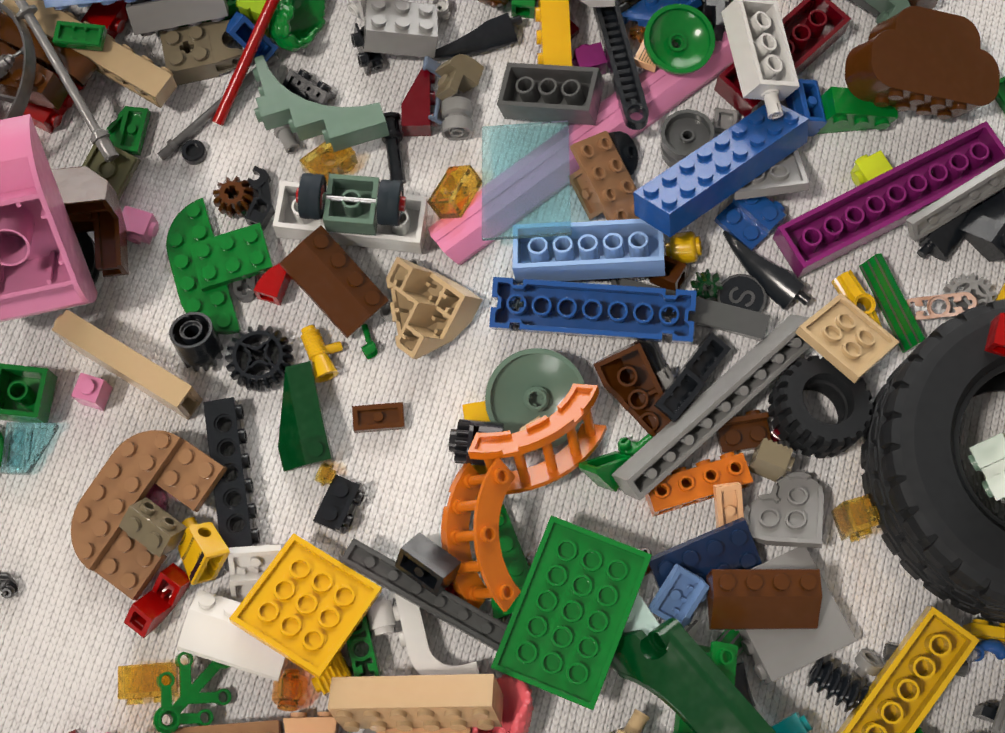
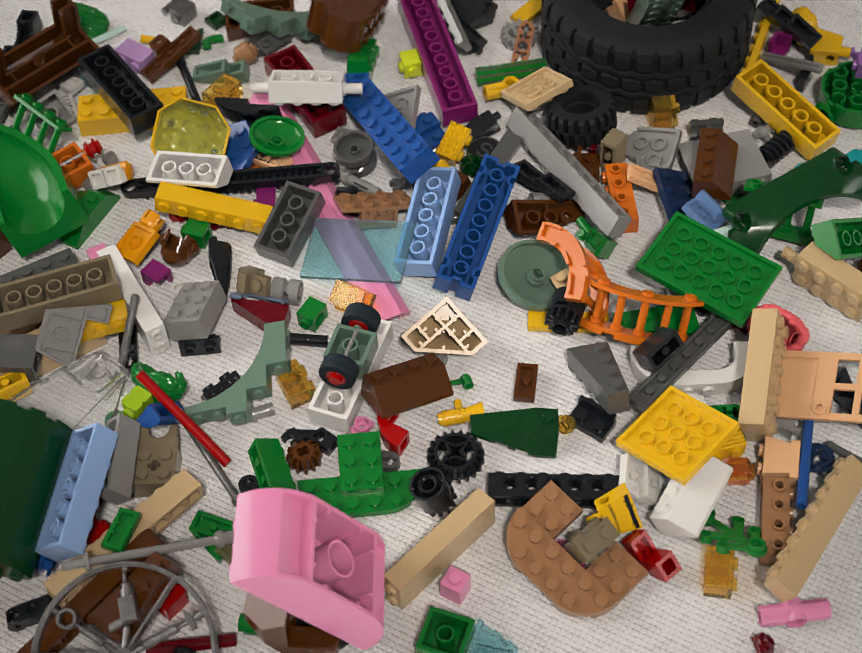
camera: 75 degrees left, 20 degrees down
(194, 173) = (270, 464): none -> green brick
(282, 243) = (361, 421): none -> bright pink plate
(393, 501) = (601, 375): none -> dark grey wedge
(430, 155) = (312, 314): none -> green brick
(646, 159) = (348, 178): none -> light grey pin
(734, 254) = (453, 143): none -> yellow brick
(852, 583) = (695, 126): none -> dark grey hips

